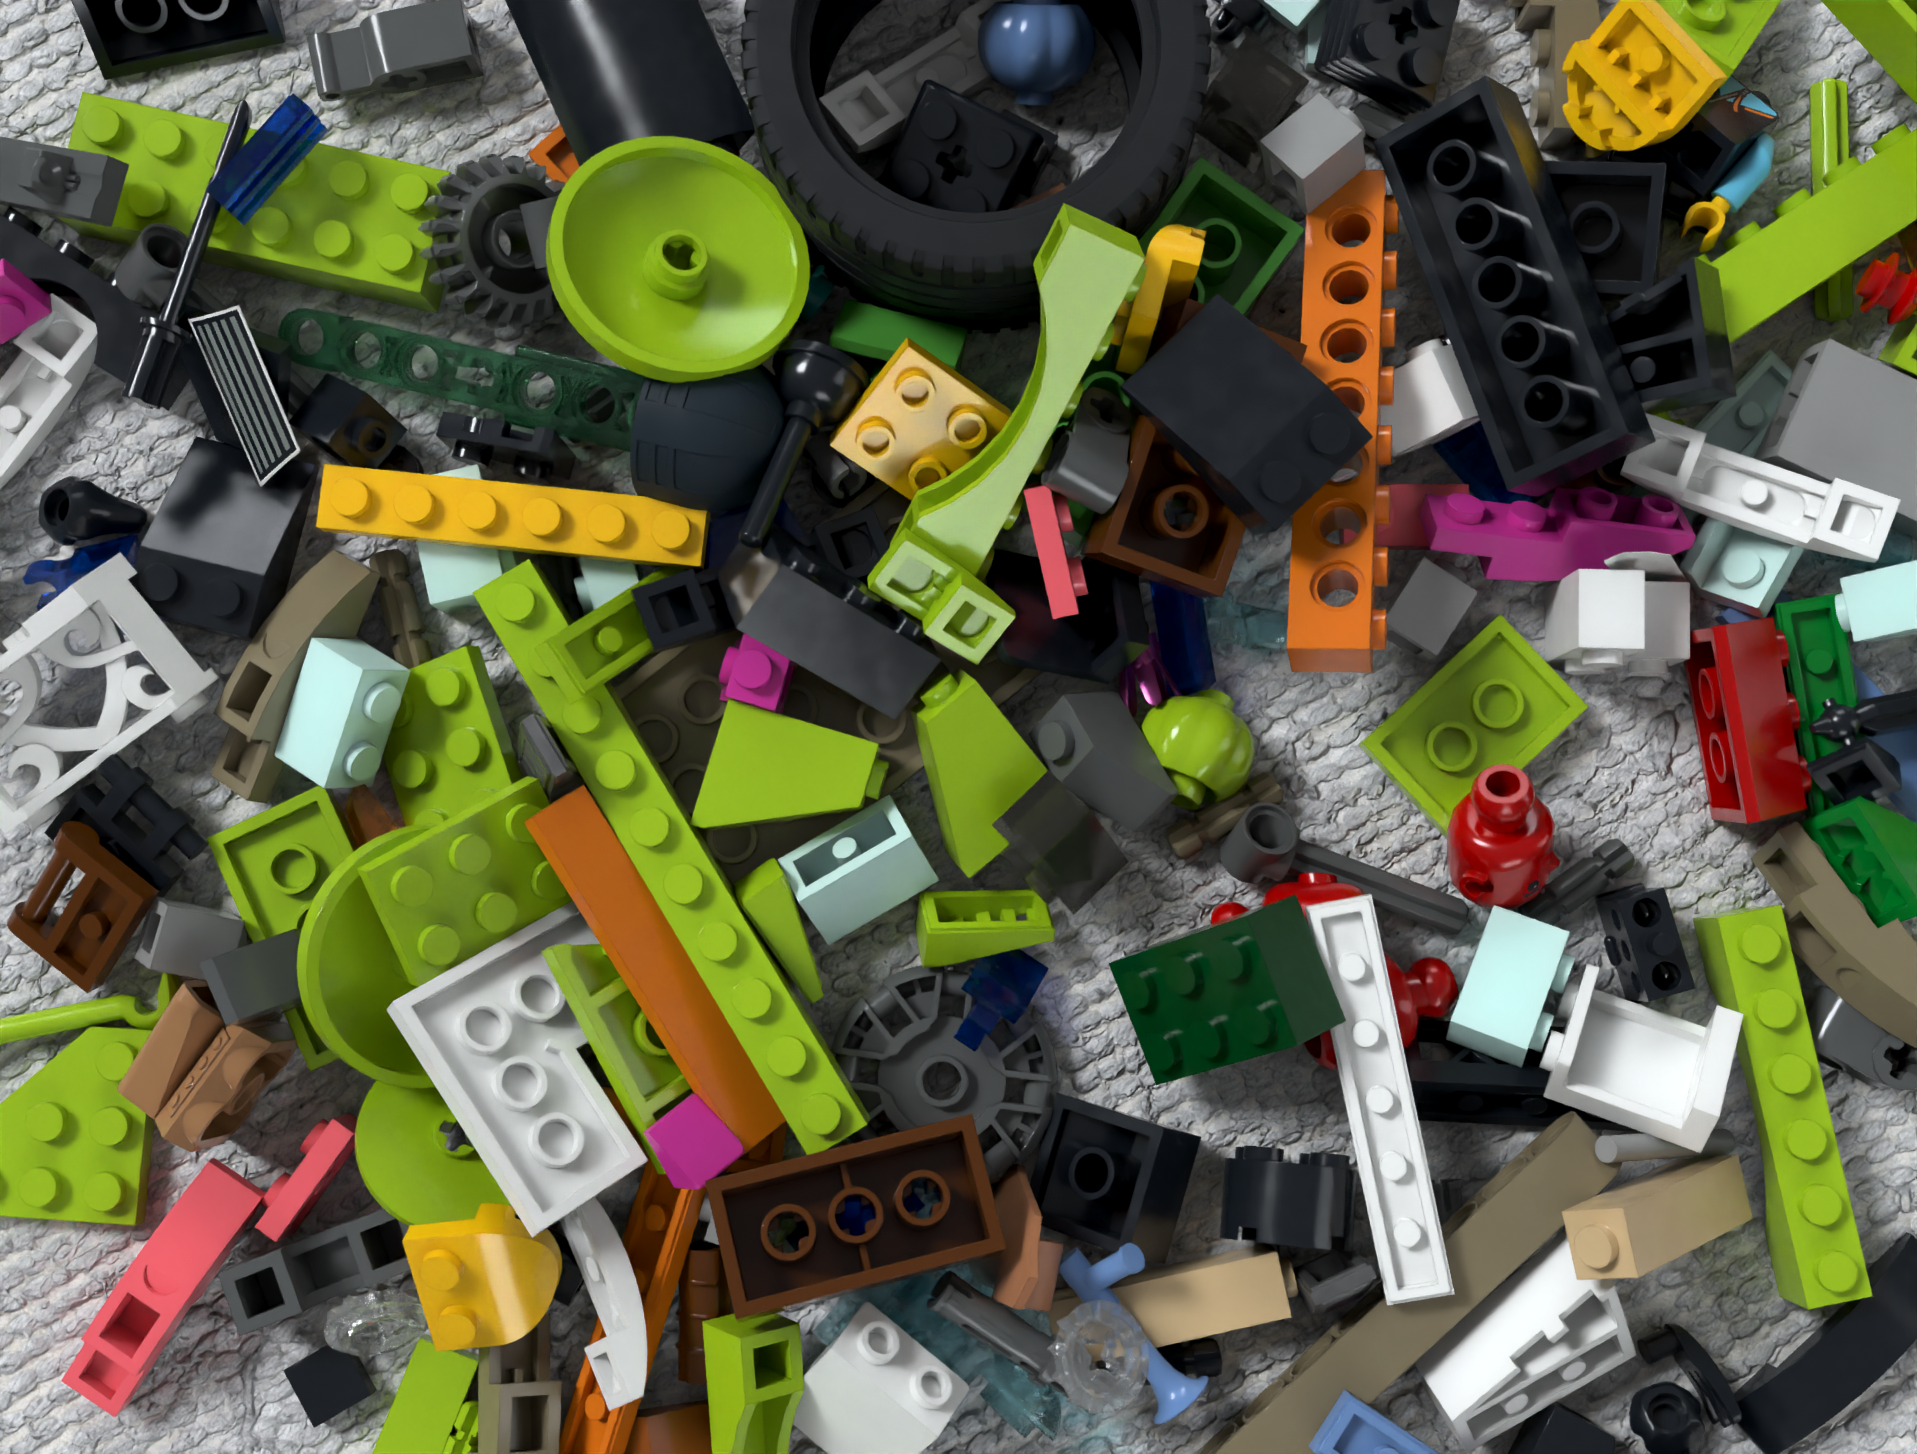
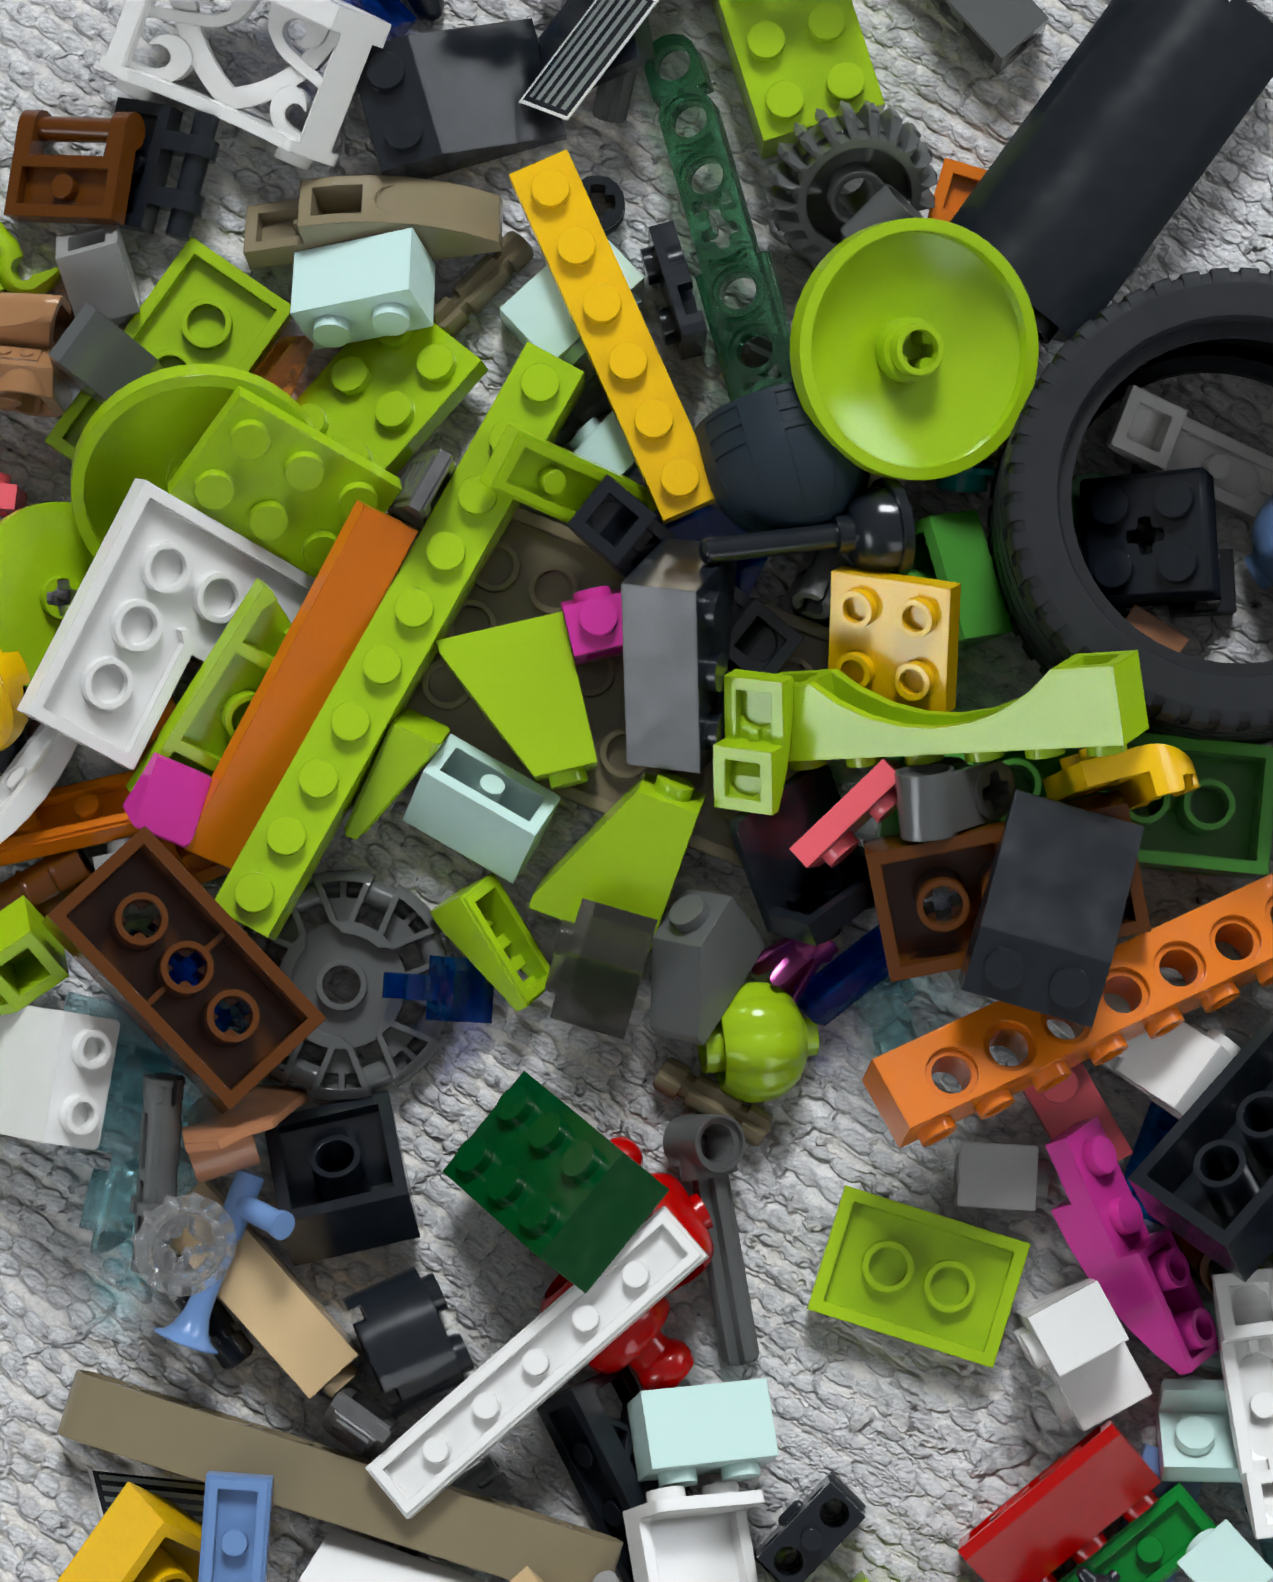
camera: 60 degrees right, 0 degrees up
(347, 424) = (614, 145): black brick -> none
(1501, 840) = (825, 1352): red piece -> none
(1580, 882) = (831, 1448): dark grey axle -> none
(1657, 566) = (1137, 1341): white sticker -> none

